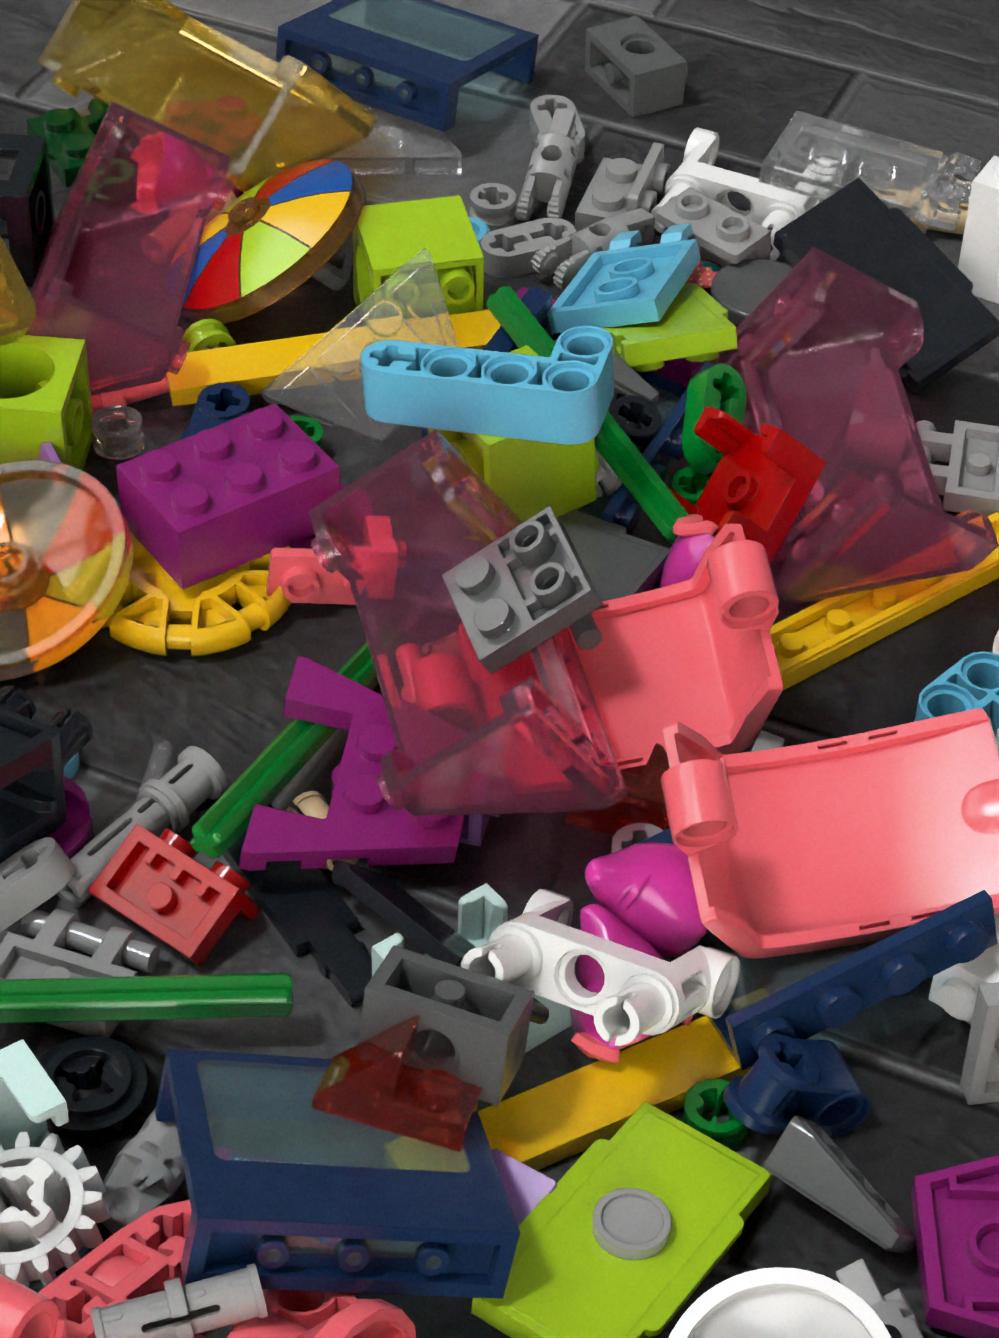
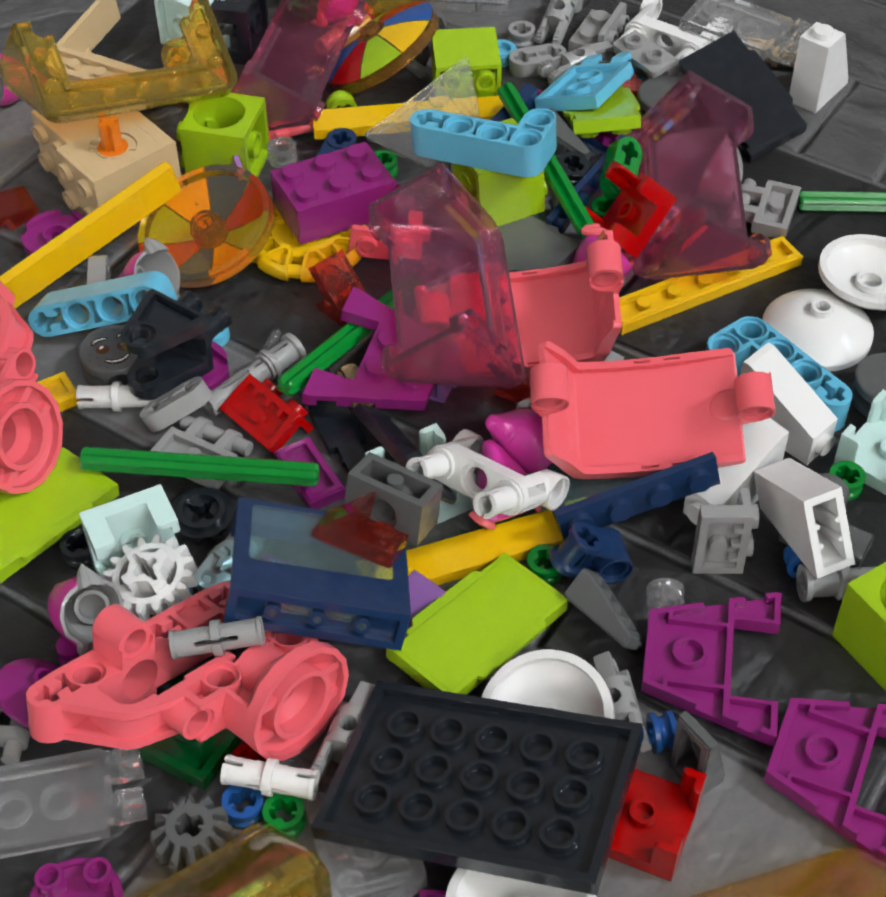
camera: 10 degrees right, 5 degrees up
(263, 655) = (335, 280): none -> clear red slope
(311, 1013) = (329, 486): none -> magenta tile
(524, 592) = (484, 260): dark grey plate -> none
(631, 1224) = (482, 618): light grey piece -> none
(933, 1146) = (664, 593): none -> clear bush

